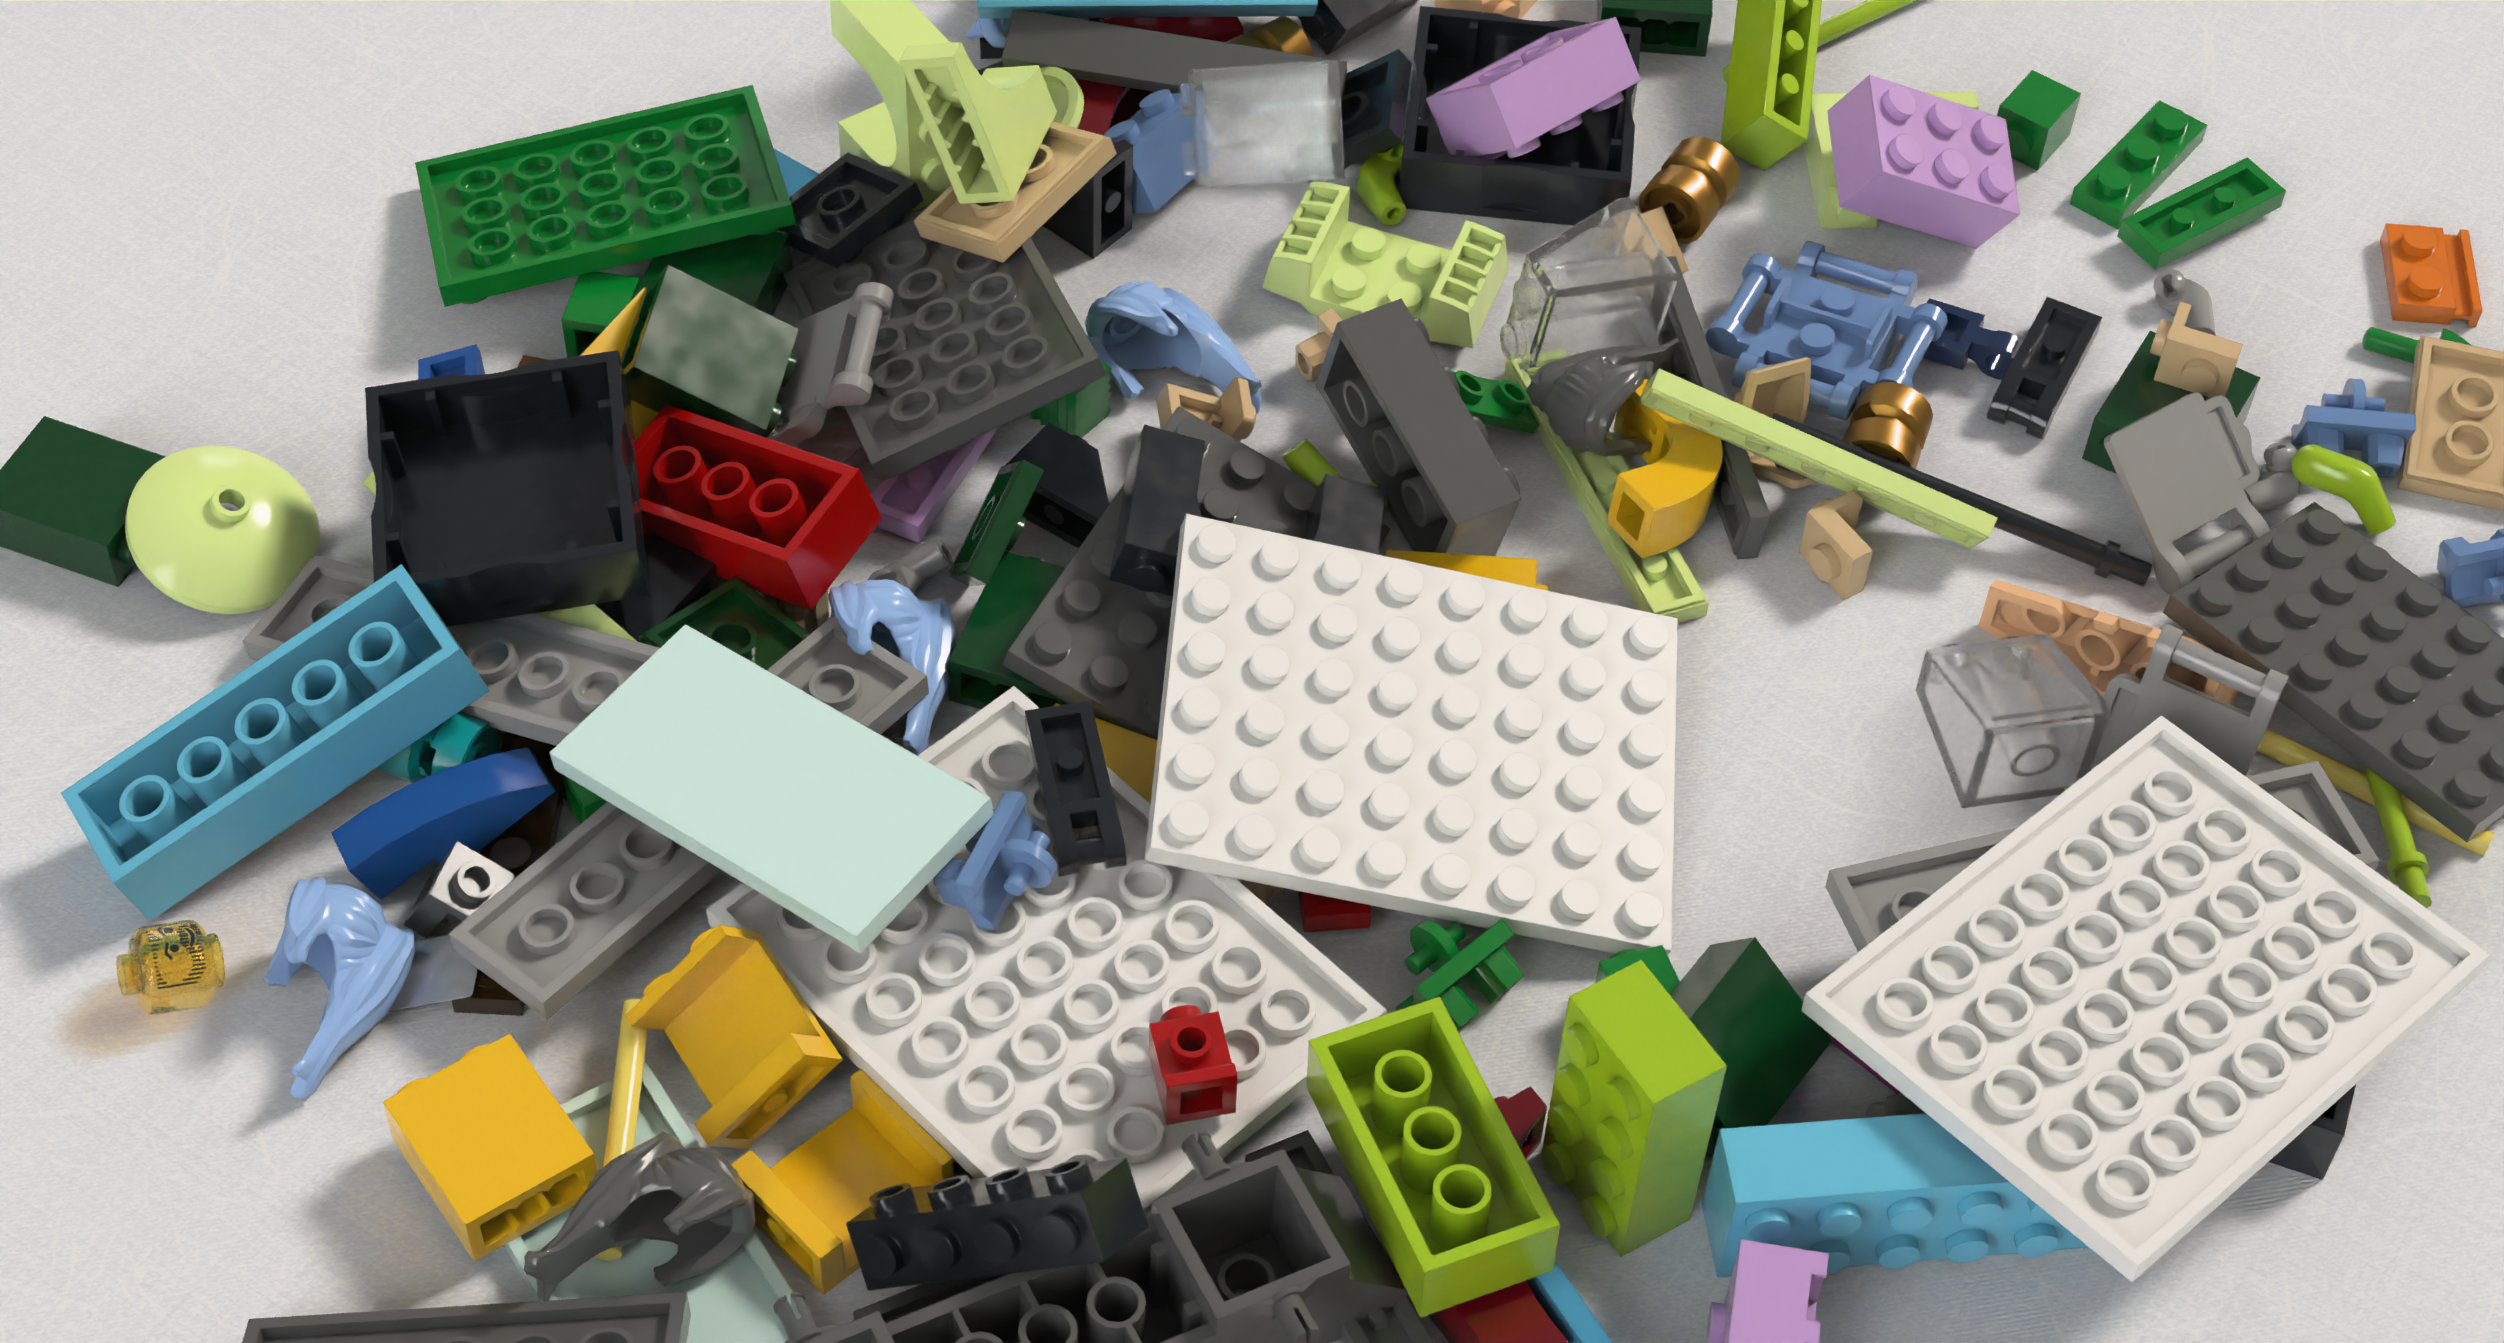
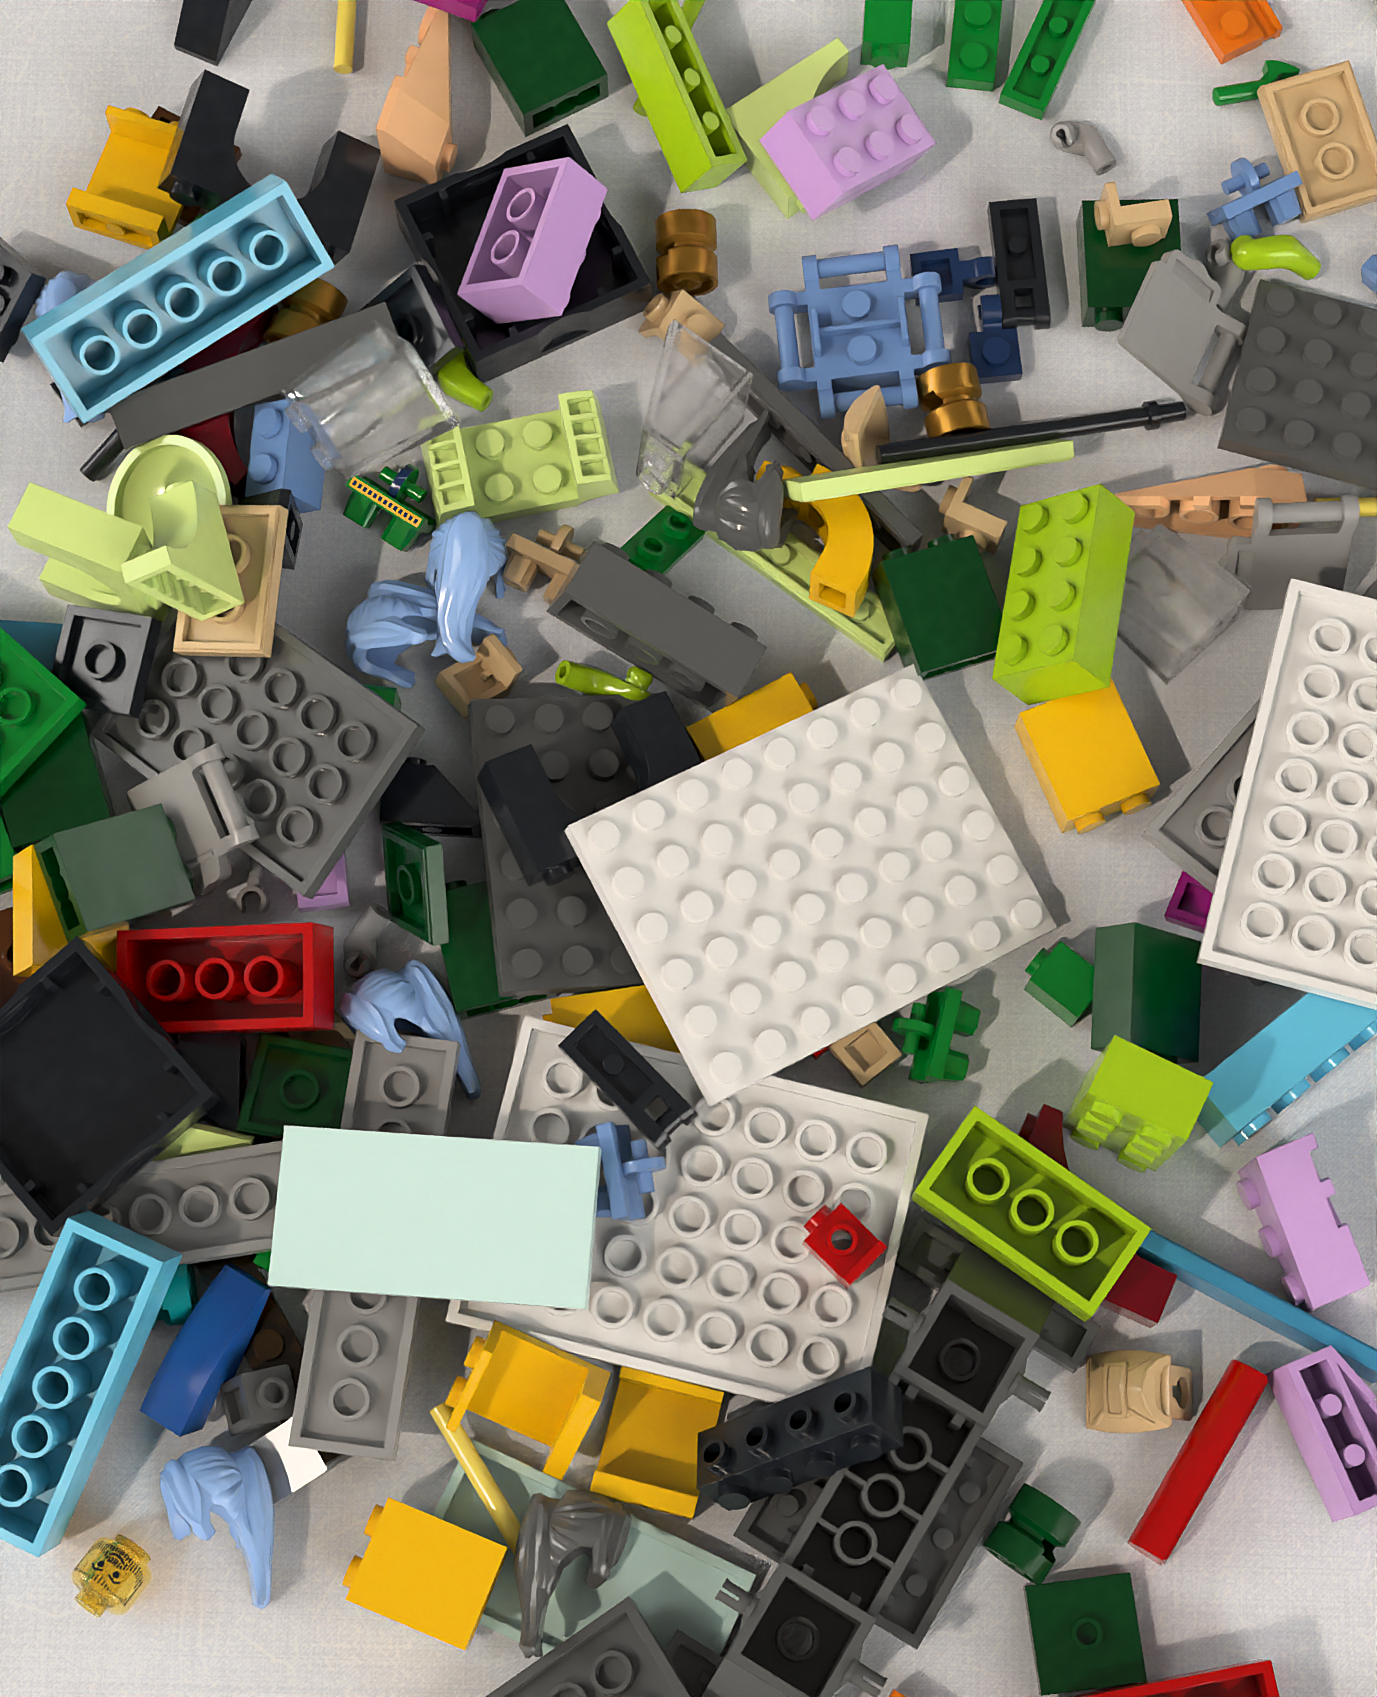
camera: 30 degrees left, 25 degrees up
(1235, 264) = (370, 497): none -> green hips
(1263, 298) = (458, 567): none -> light blue hair
(1366, 946) = (865, 1054): none -> tan plate
(1746, 596) = (939, 606): none -> dark green brick
(1816, 804) = (1087, 758): none -> yellow brick
(1887, 628) = (1064, 595): none -> lime brick
(1968, 426) = (994, 349): none -> dark blue plate

